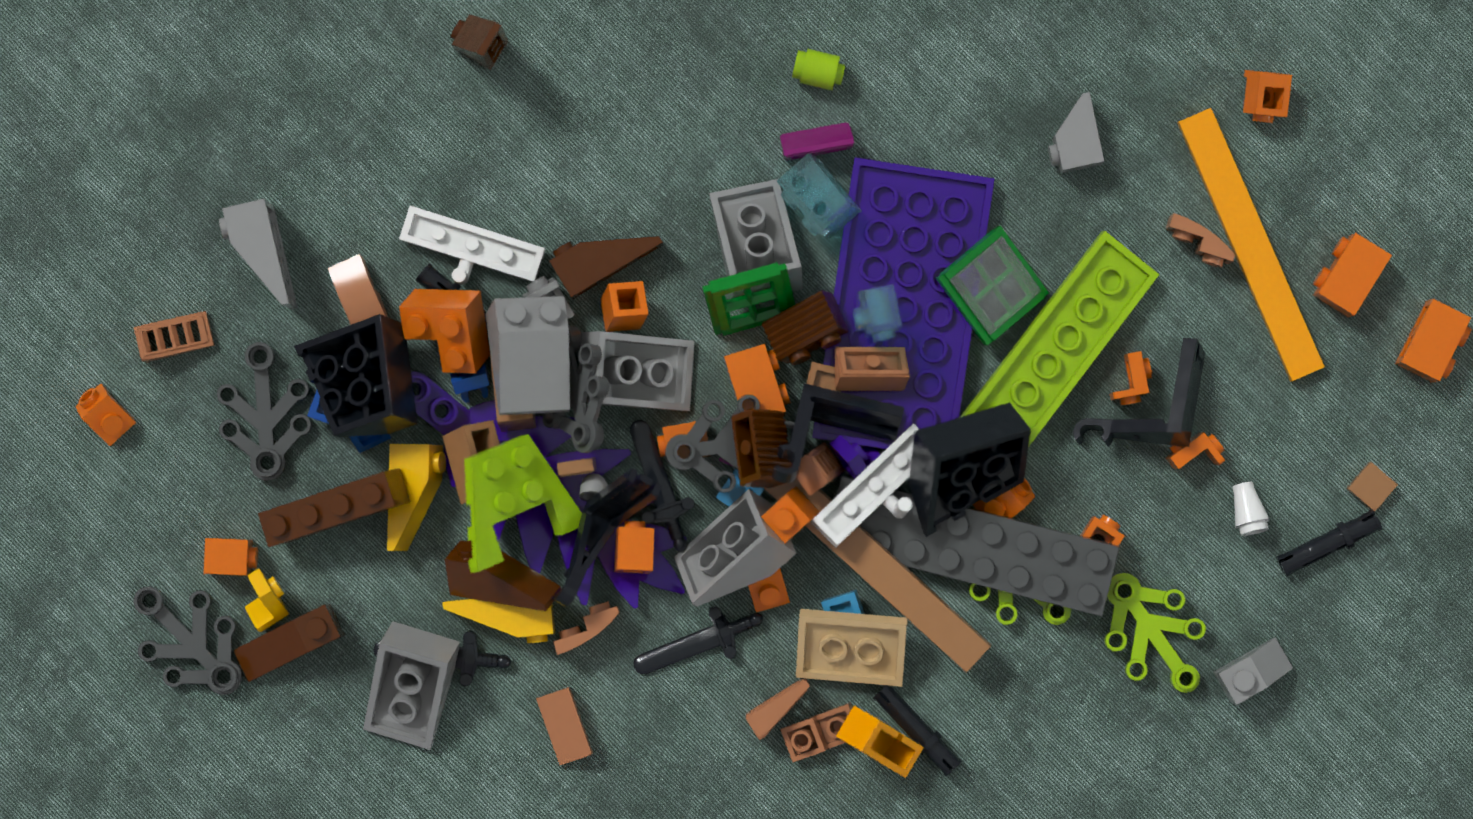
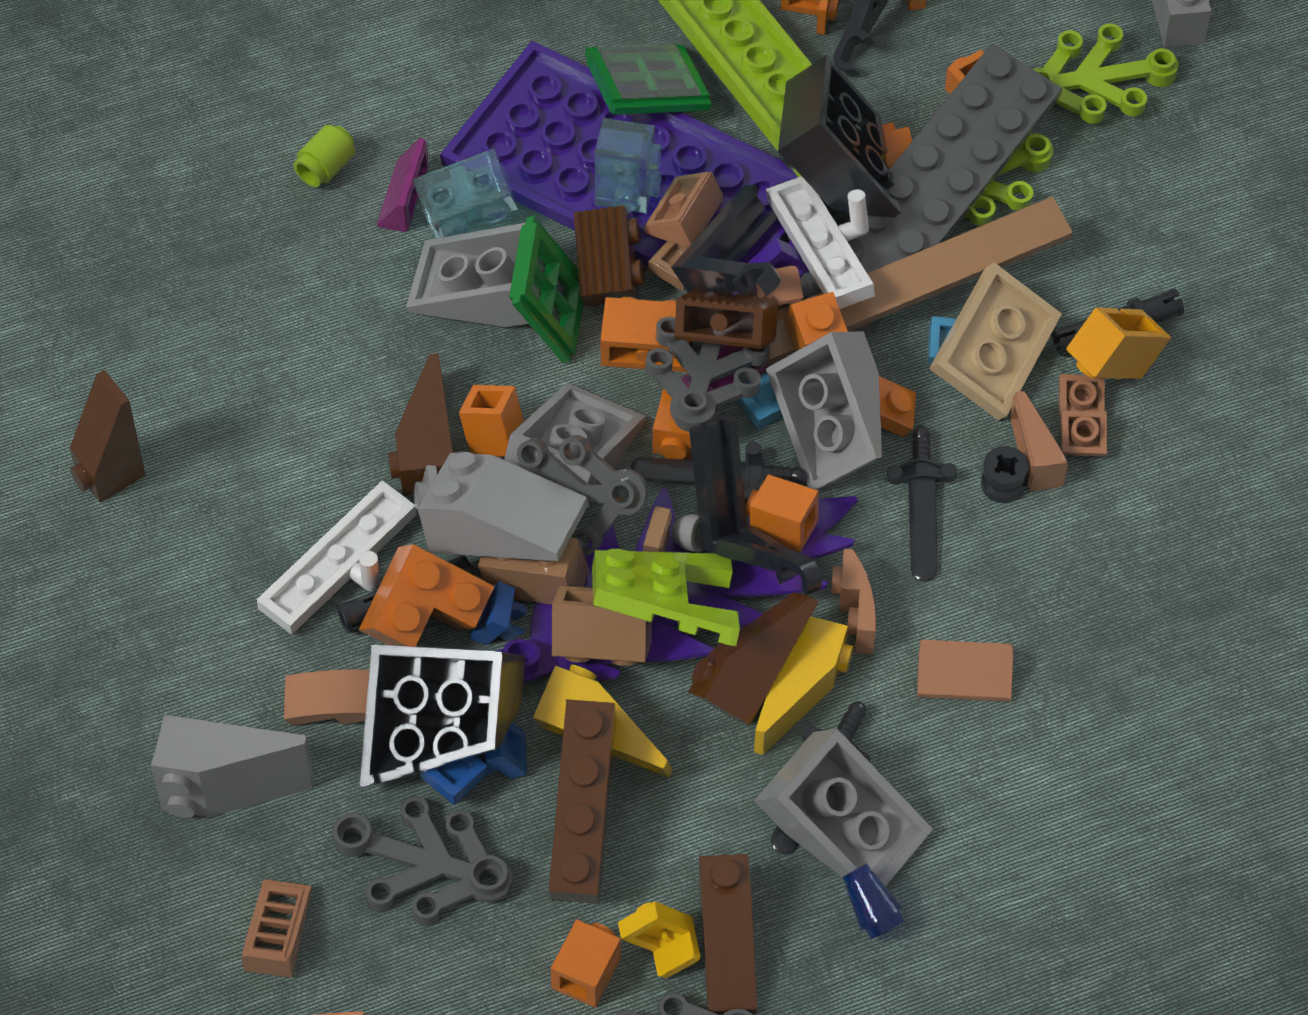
camera: 70 degrees left, 30 degrees down
(350, 731) = (872, 902): none -> clear blue cone
(745, 690) = (1000, 485): none -> black wheel

